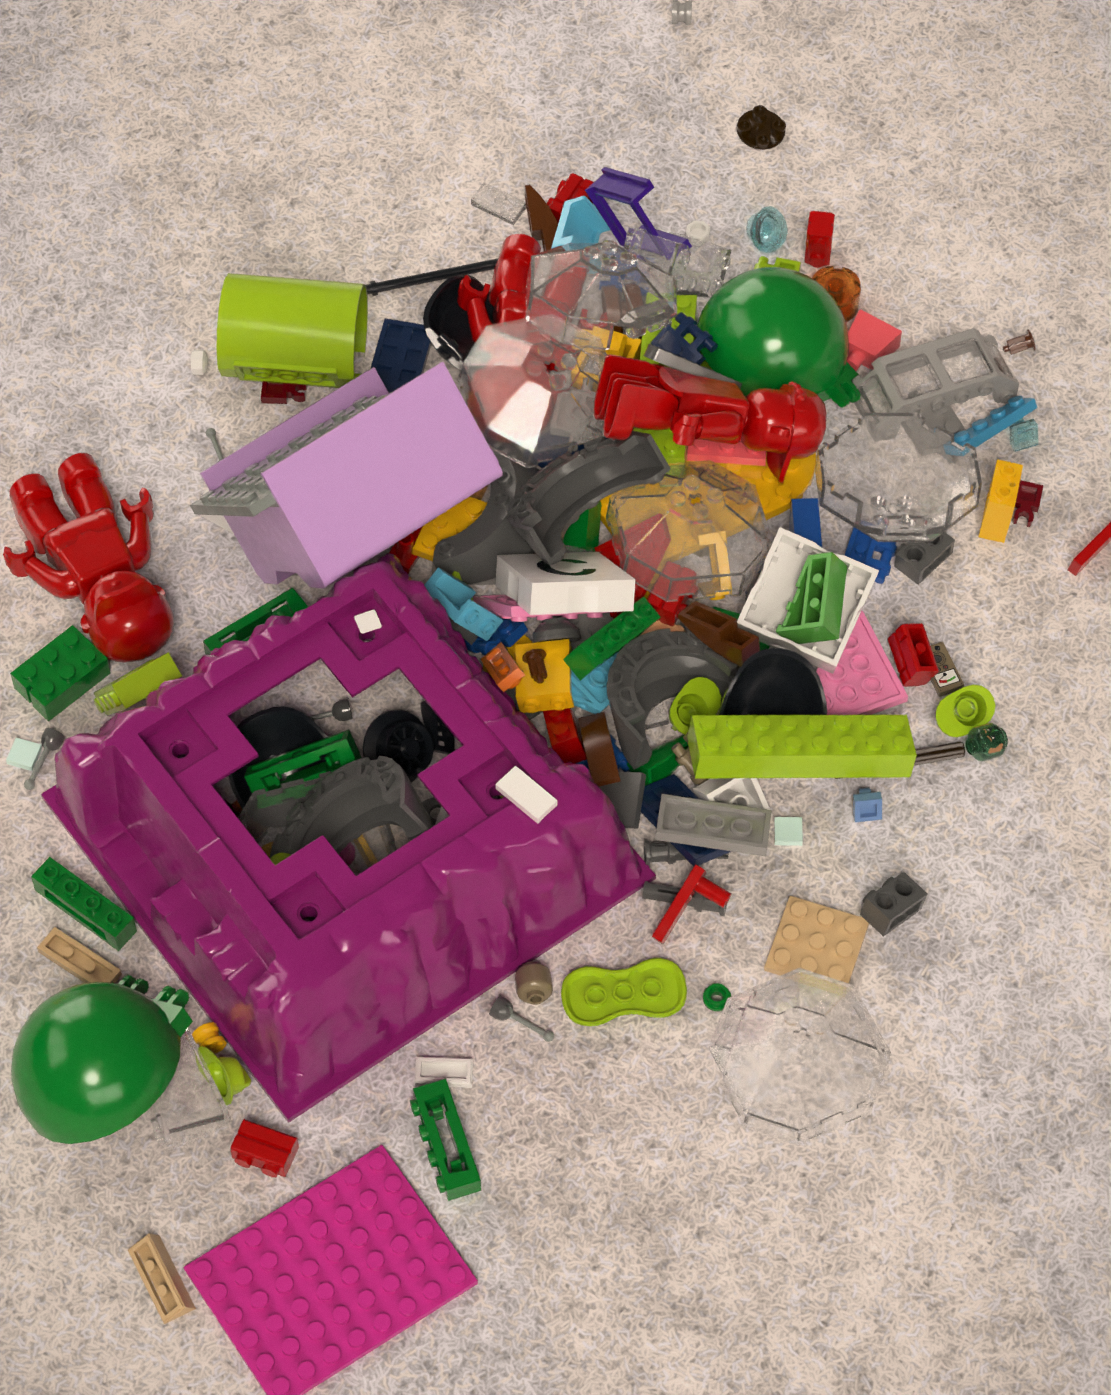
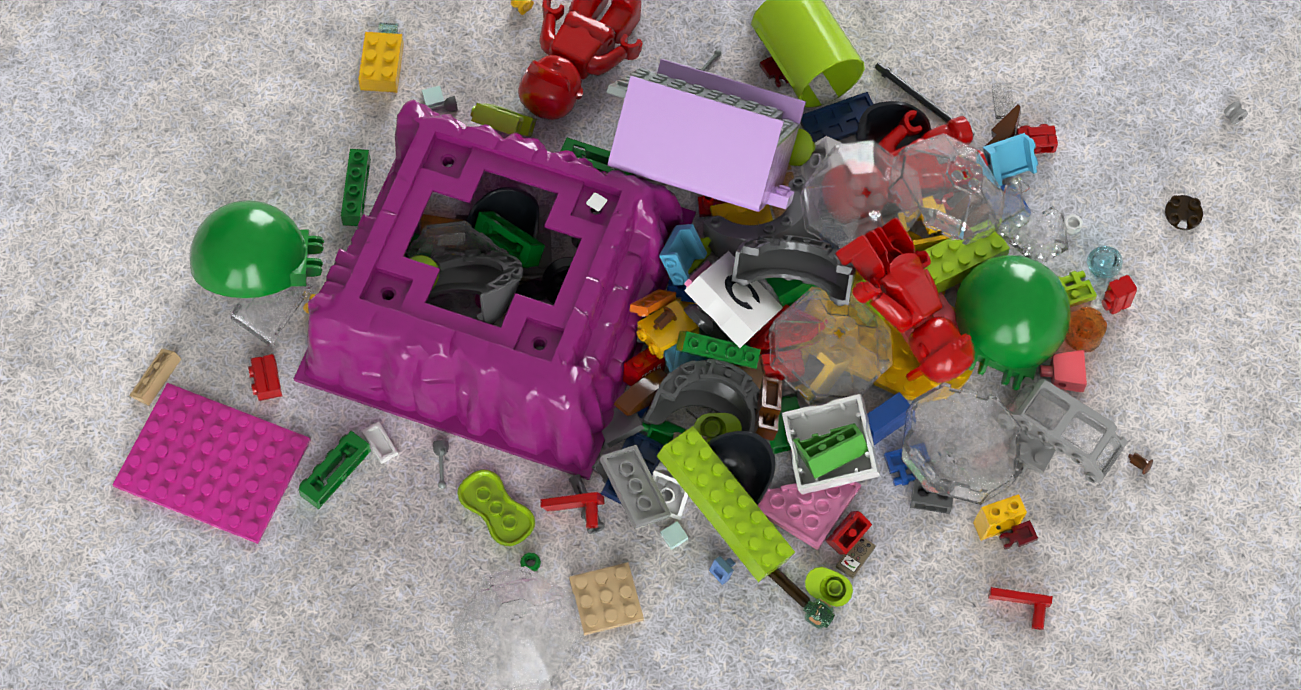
camera: 55 degrees right, 5 degrees up
(60, 673) = (493, 79): green piece -> none
(77, 958) = (320, 209): tan plate -> none
(227, 1074) = (297, 330): lime piece -> none
(526, 794) = (537, 358): white tile -> none
(533, 983) = (468, 454): dark tan head -> none
(628, 190) = (1039, 198): dark purple piece -> none
(674, 341) = (952, 257): dark blue plate -> none
(684, 365) = (939, 275): dark grey beam -> none
(893, 903) = (661, 630): dark grey brick -> none
(996, 422) = (1058, 480): dark azure plate -> none
(1023, 434) = (1069, 503): clear light blue tile -> none

